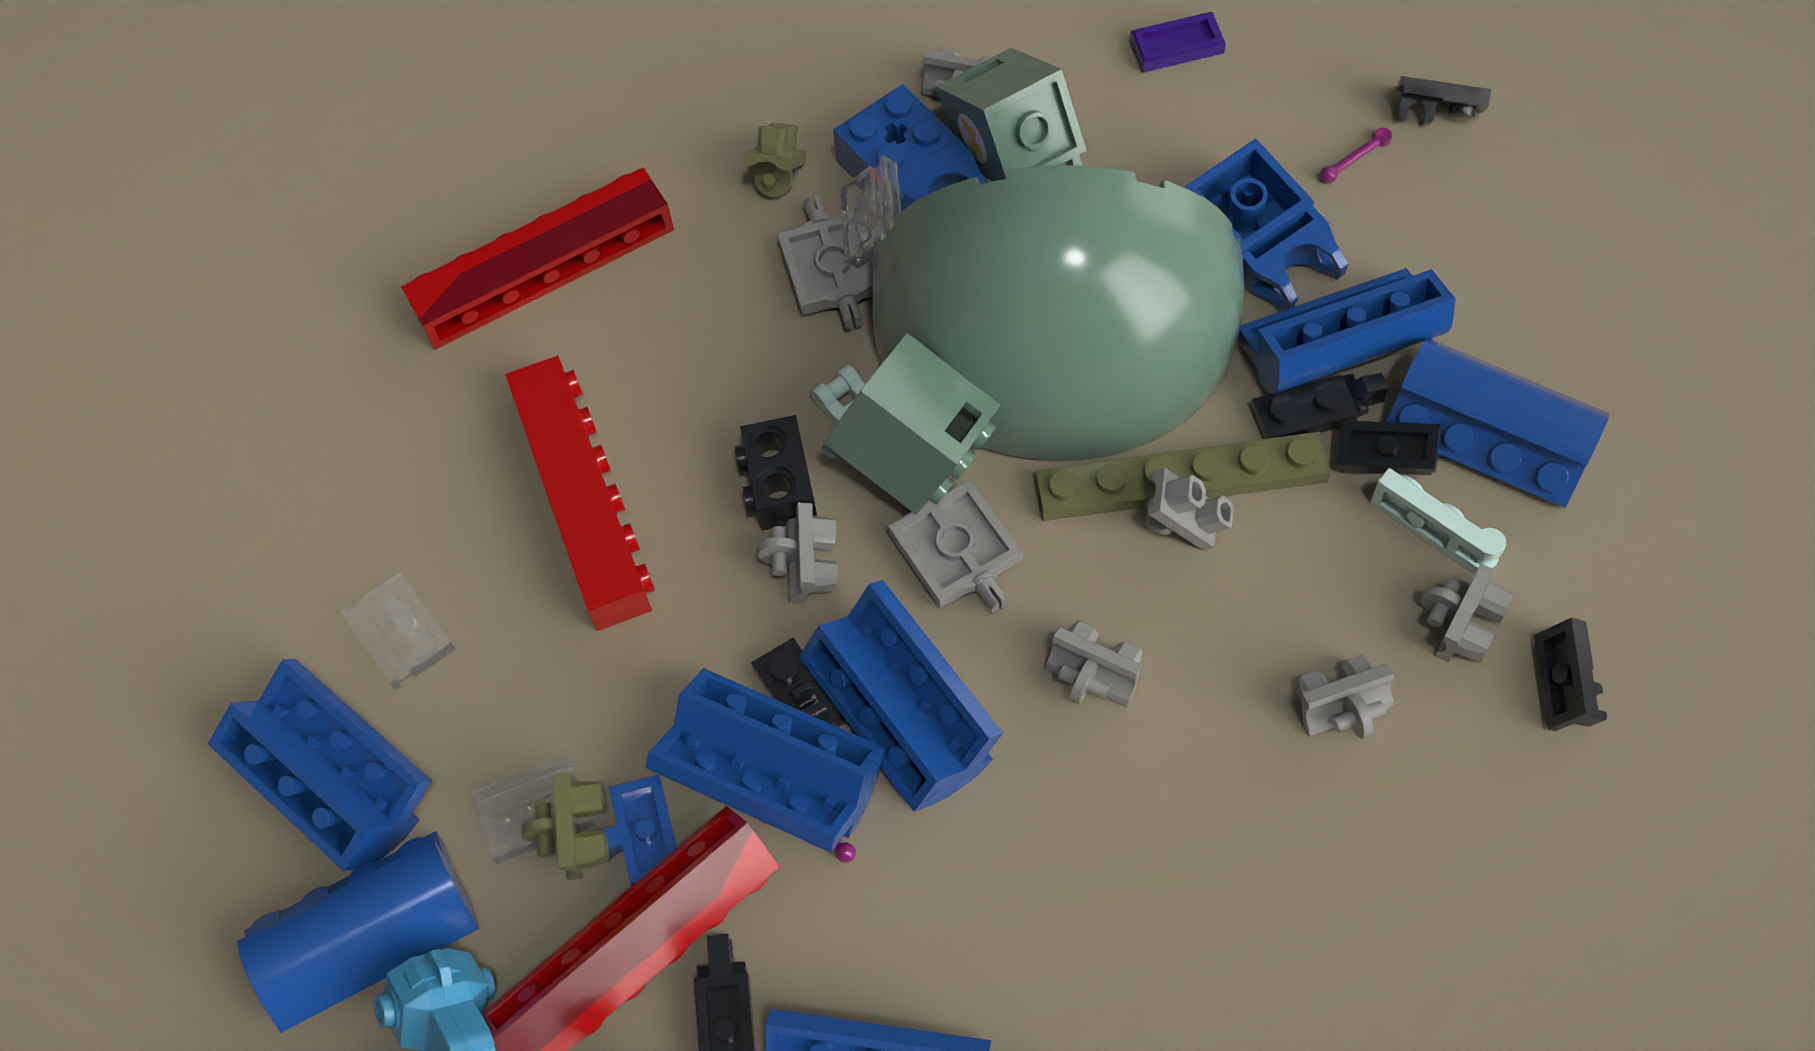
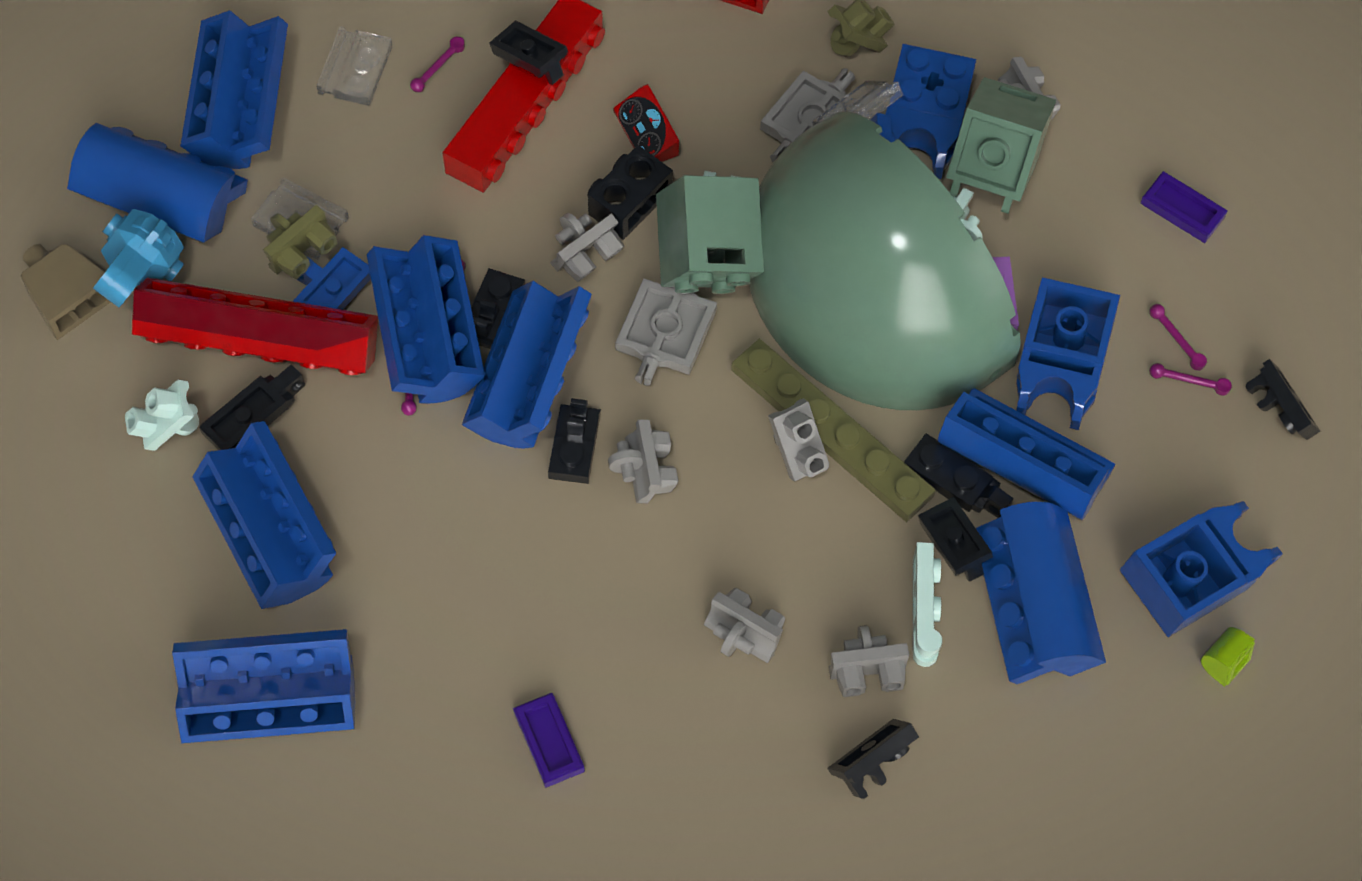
camera: 45 degrees right, 0 degrees up
(459, 519) = (456, 45): none -> magenta hinge
(552, 446) = (530, 51): none -> black plate
(712, 407) = (647, 124): none -> slope
(1026, 725) = (574, 442): none -> black plate
(1337, 973) = (548, 740): none -> dark purple tile
(1340, 138) = (1198, 360): none -> magenta hinge
(1567, 278) = (1195, 568): none -> blue brick
(1666, 312) = (1228, 655): none -> lime brick

